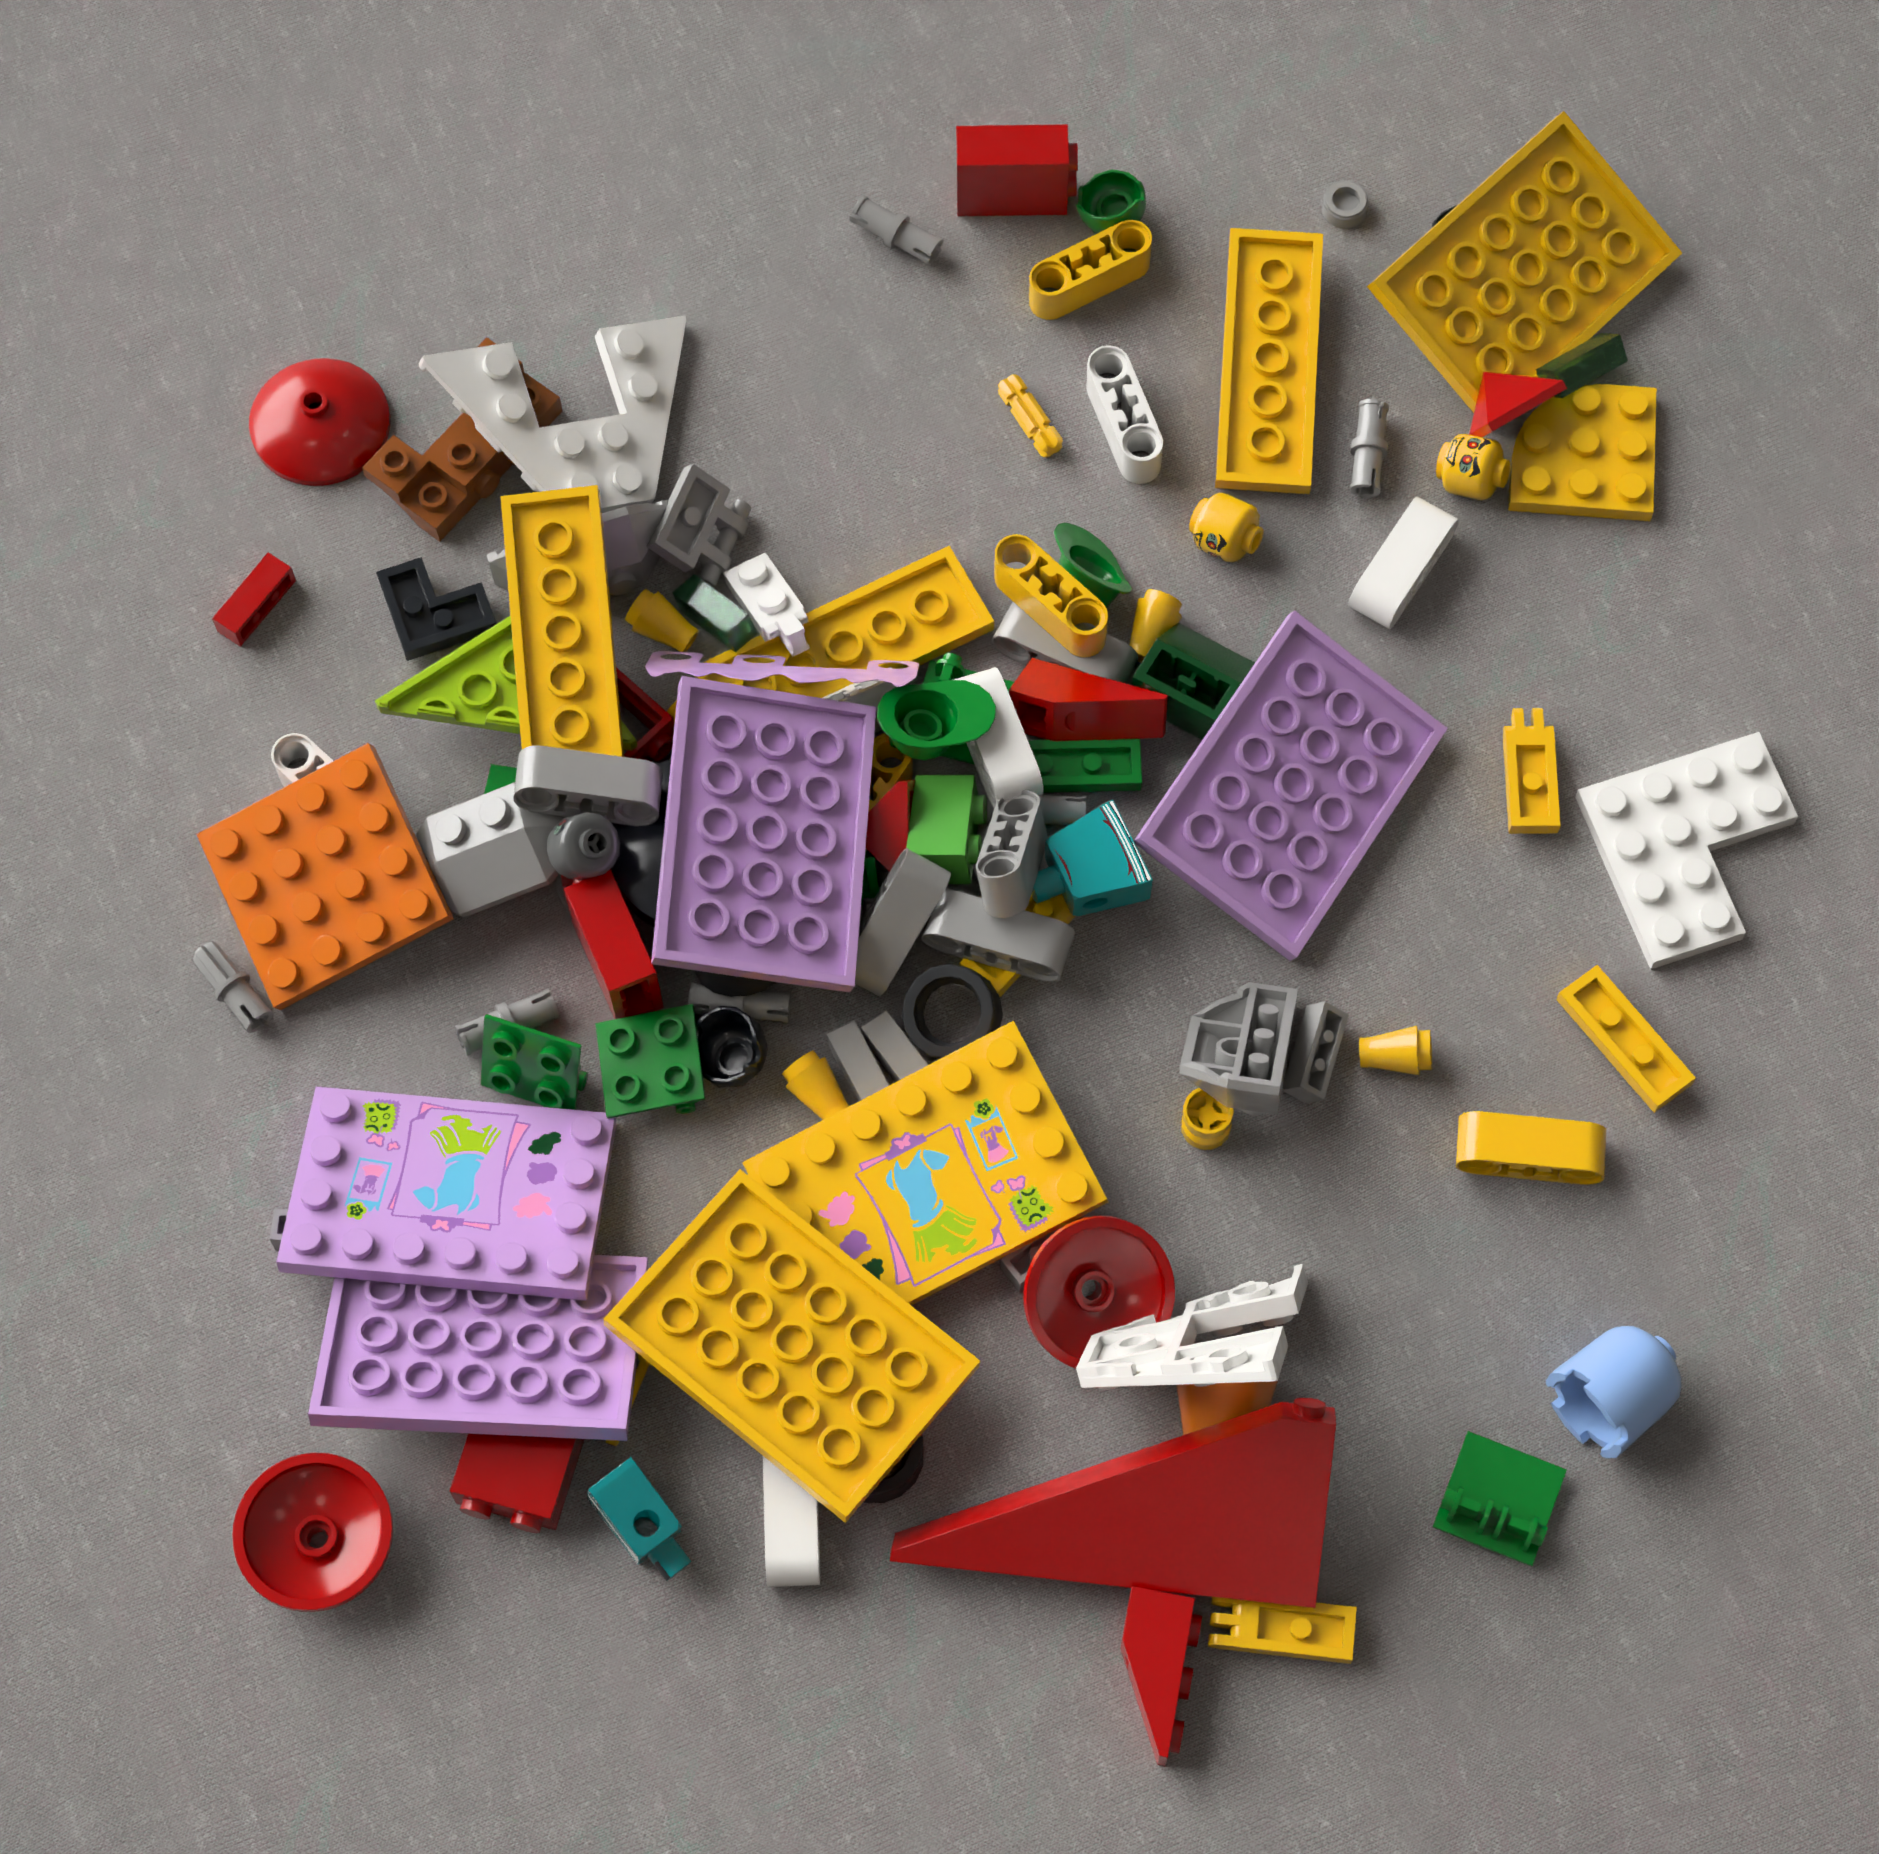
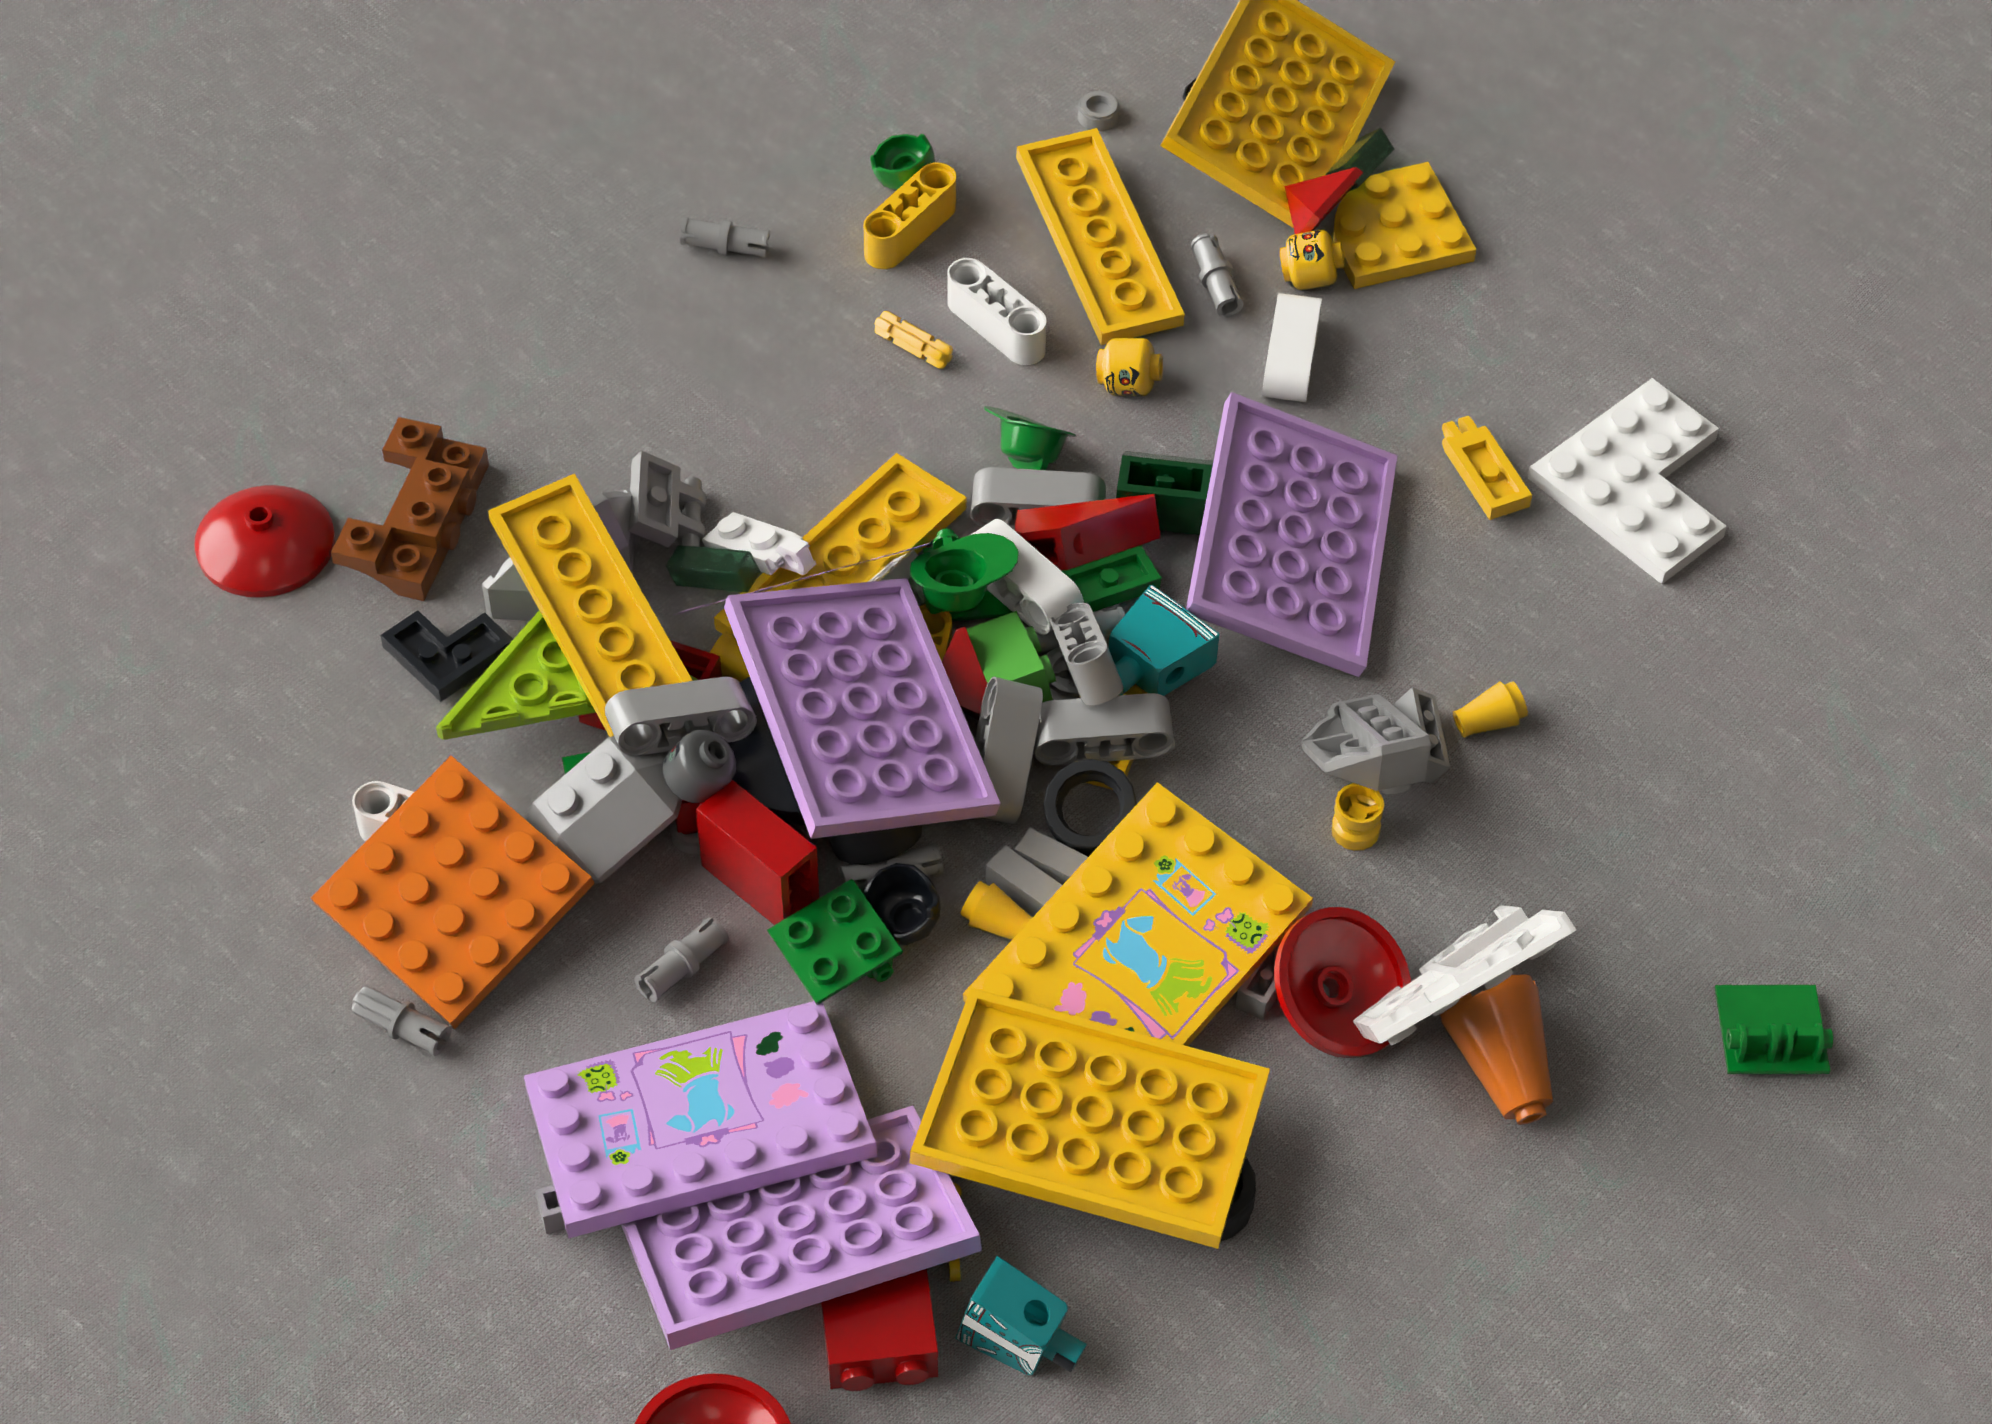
camera: 25 degrees left, 15 degrees down
(254, 599) = (270, 697): red piece -> none
(531, 1064) = (725, 977): green hinge -> none
(611, 451) = (545, 401): white wing -> none
(660, 621) = (668, 593): yellow cone -> none
(790, 1531) = (1158, 1279): white beam -> none
(1015, 170) = (809, 157): red brick -> none
(1063, 600) = (1012, 451): yellow beam -> none
(1152, 618) = (1103, 454): yellow cone -> none
(1154, 1653) = (1548, 1265): red slope -> none
(1195, 1515) = (1532, 1122): red slope -> none
(1286, 1630) = (1647, 1200): yellow hinge -> none
(1531, 1148) = (1644, 745): yellow beam -> none
(1616, 1388) = (1824, 899): light blue cylinder -> none
(1625, 1038) = (1675, 637): yellow plate -> none

